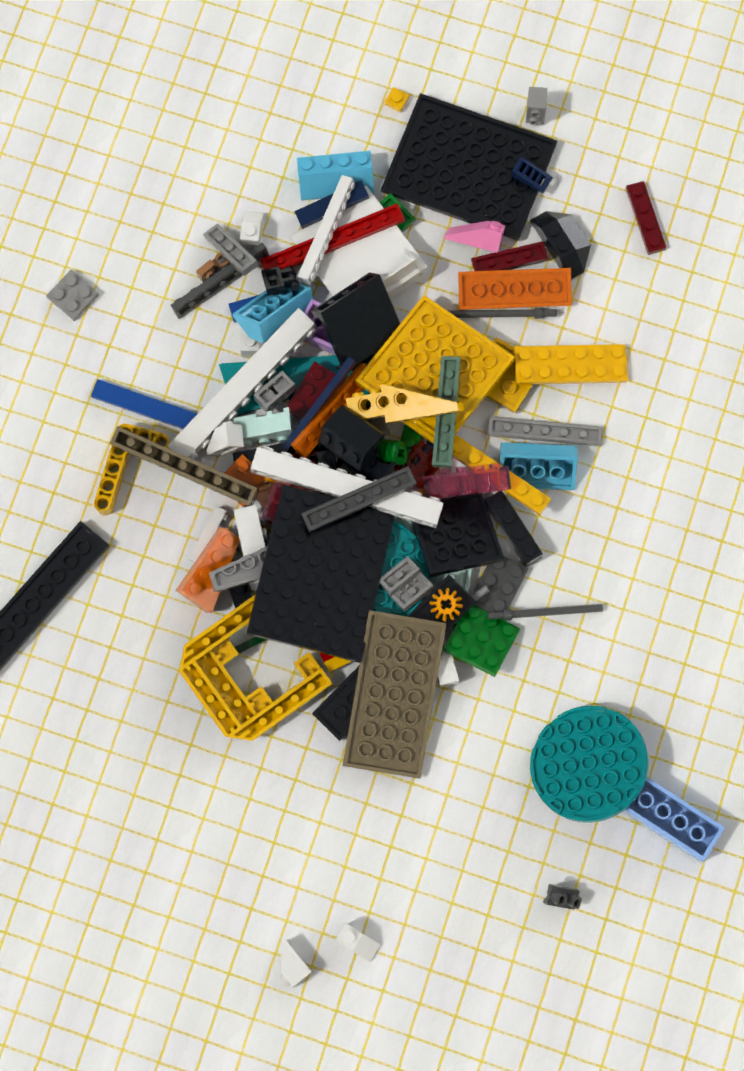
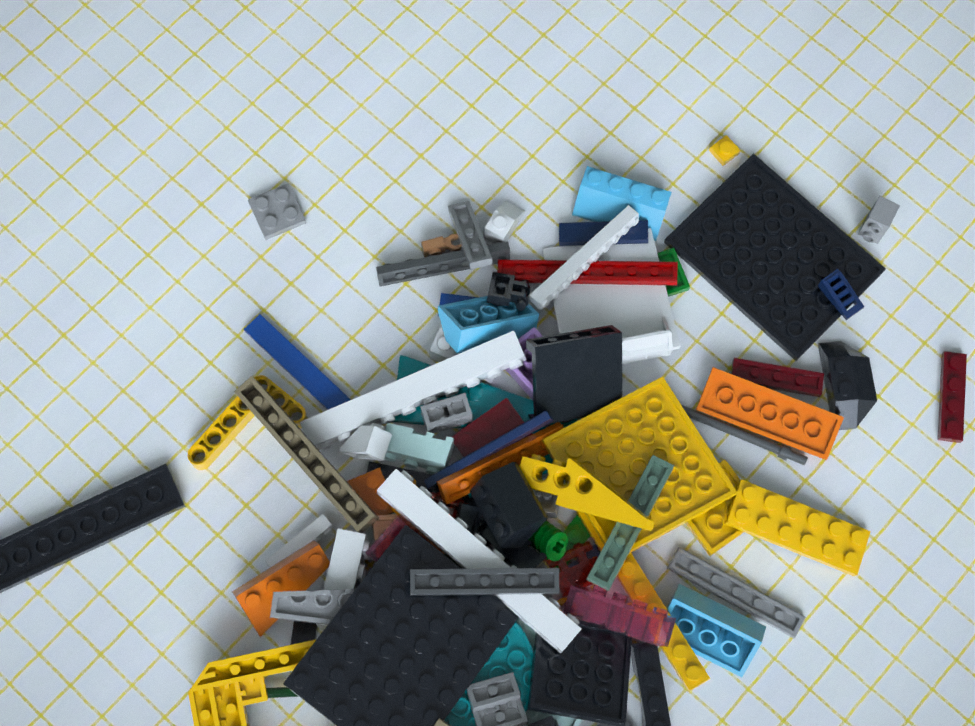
camera: 15 degrees right, 5 degrees down
(482, 235) = (755, 336): bright pink slope -> none

